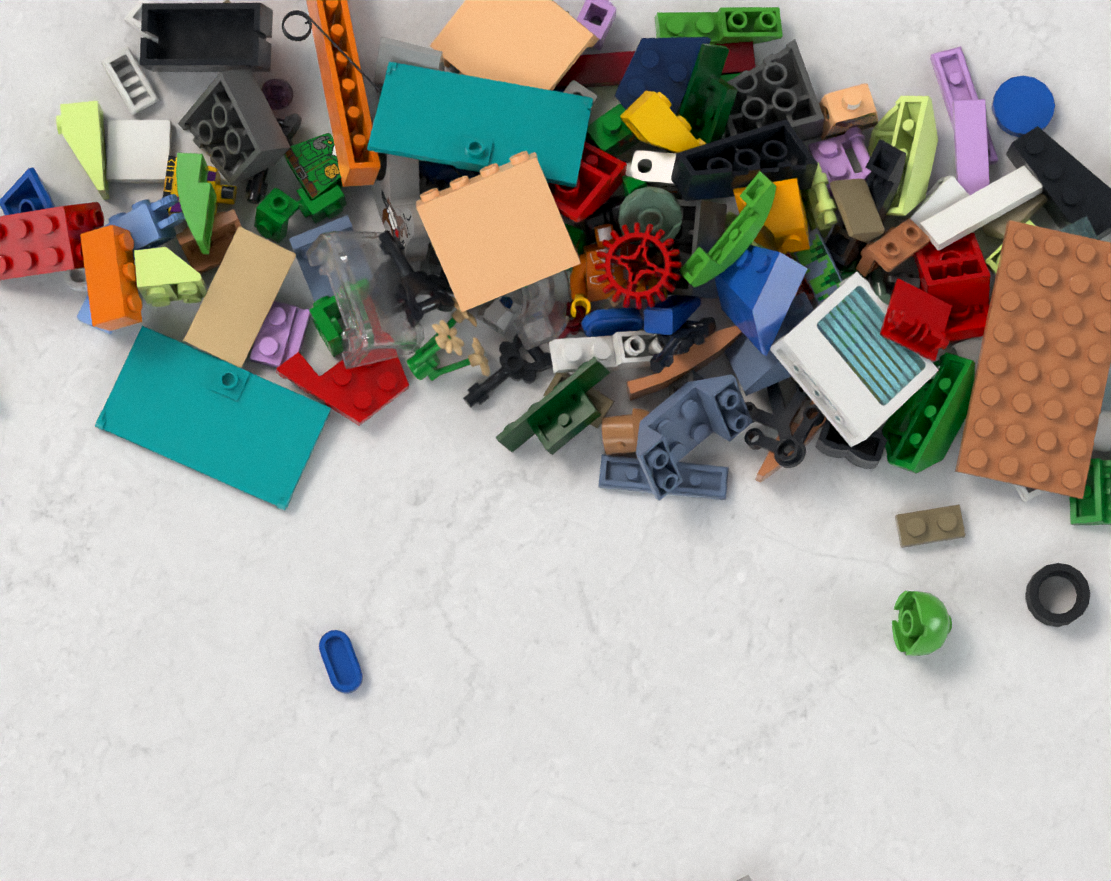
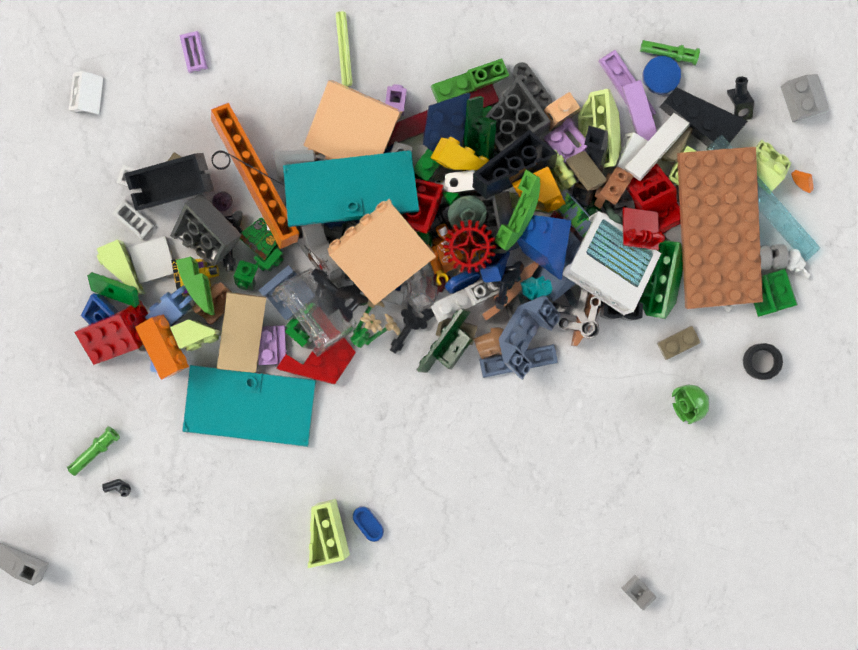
camera: 15 degrees left, 10 degrees up
(65, 173) = (113, 289): none -> green tile
(270, 653) = (327, 535): none -> yellowish green wedge
(726, 360) = (535, 288): none -> teal piece
(809, 29) = (544, 95): none -> dark grey beam
(1060, 81) = (649, 47): none -> bright green pin

